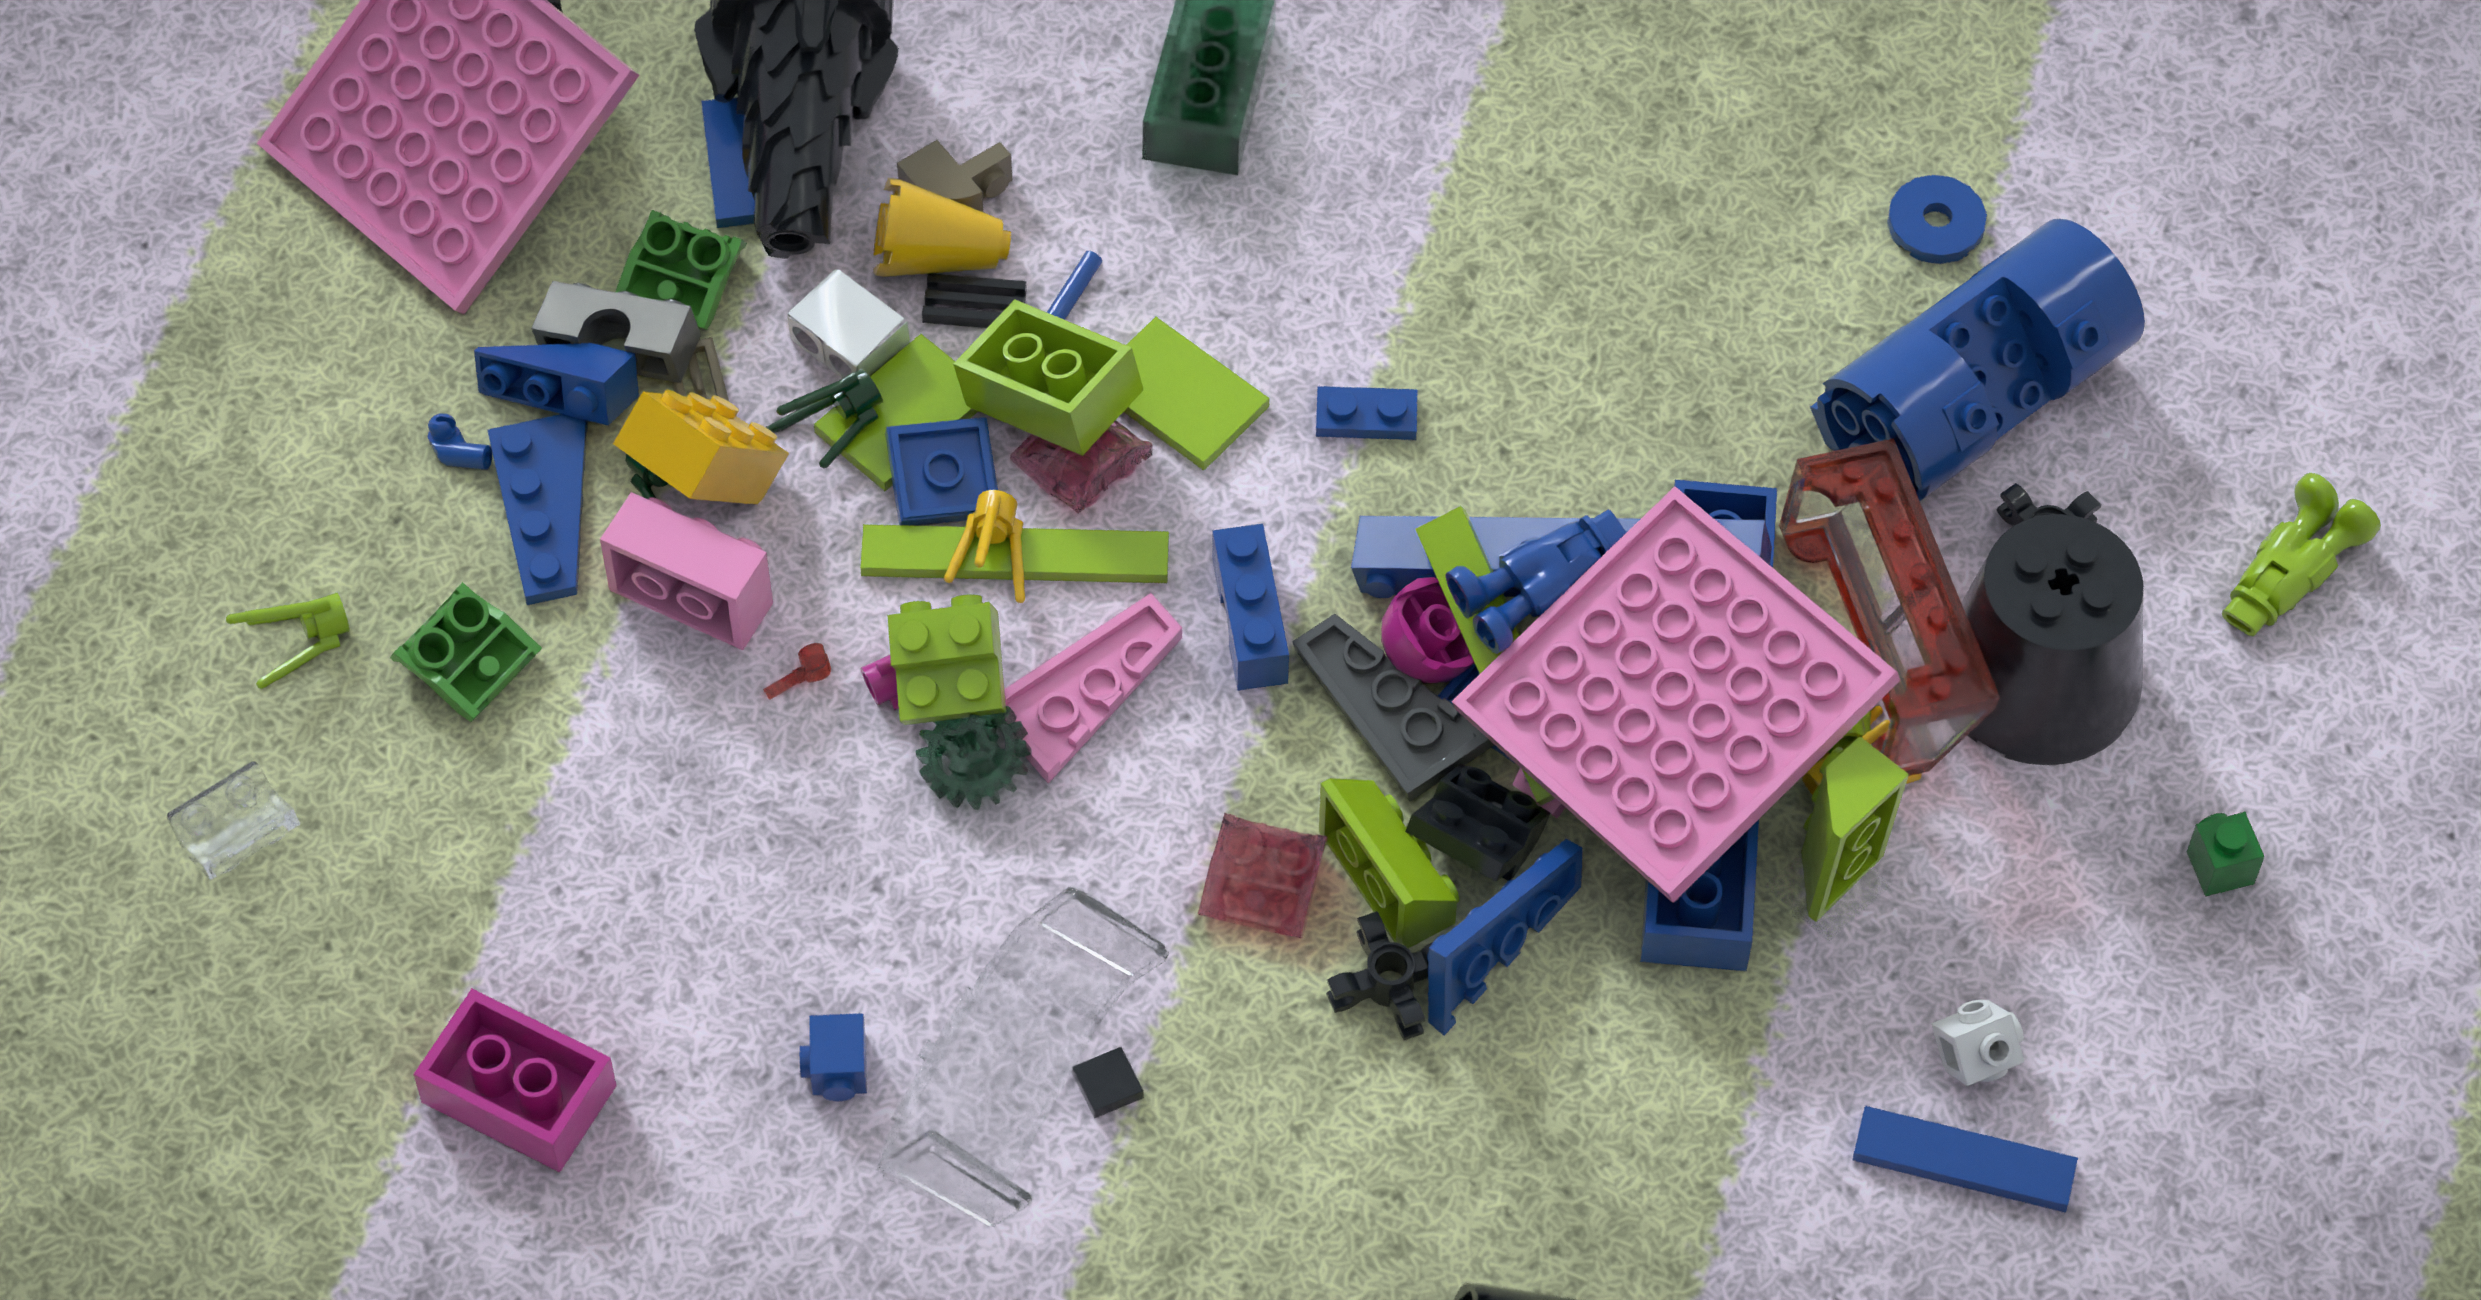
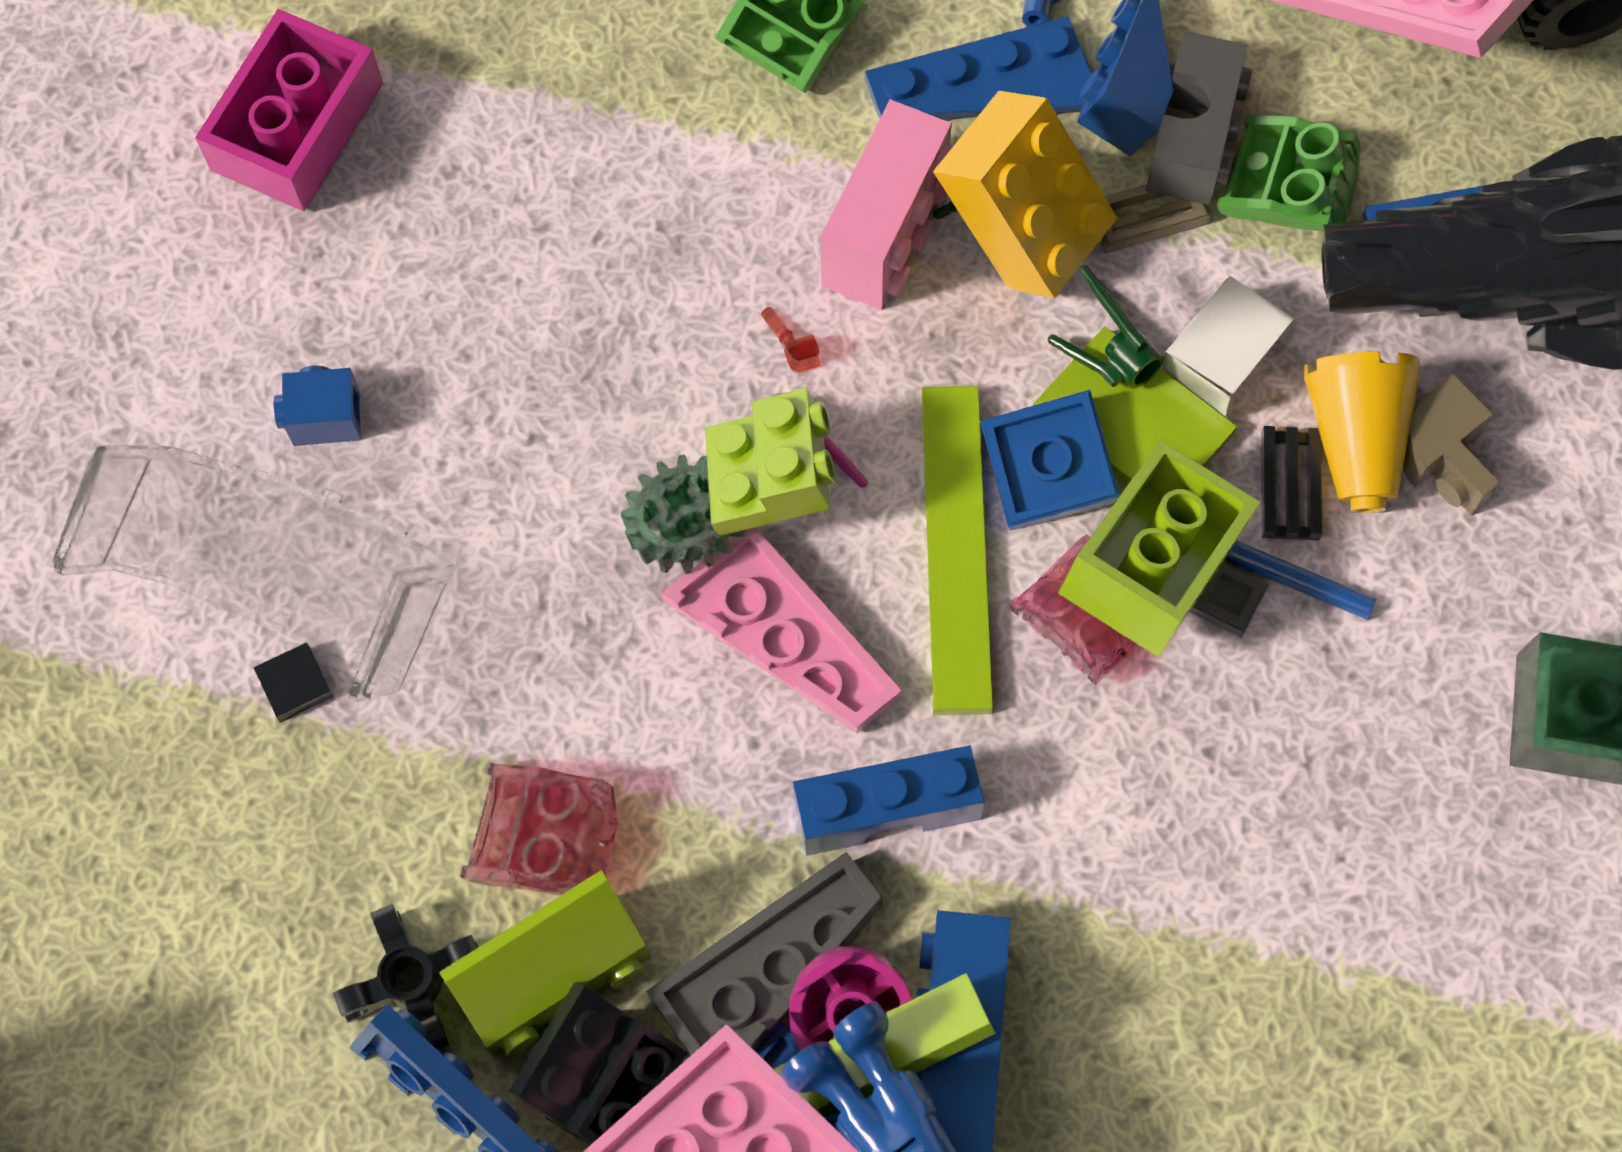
camera: 90 degrees right, 10 degrees up
(992, 523) = (980, 511): yellow plant -> none
(1190, 395) = (1189, 715): lime tile -> none
(1366, 413) = (1182, 932): blue plate -> none

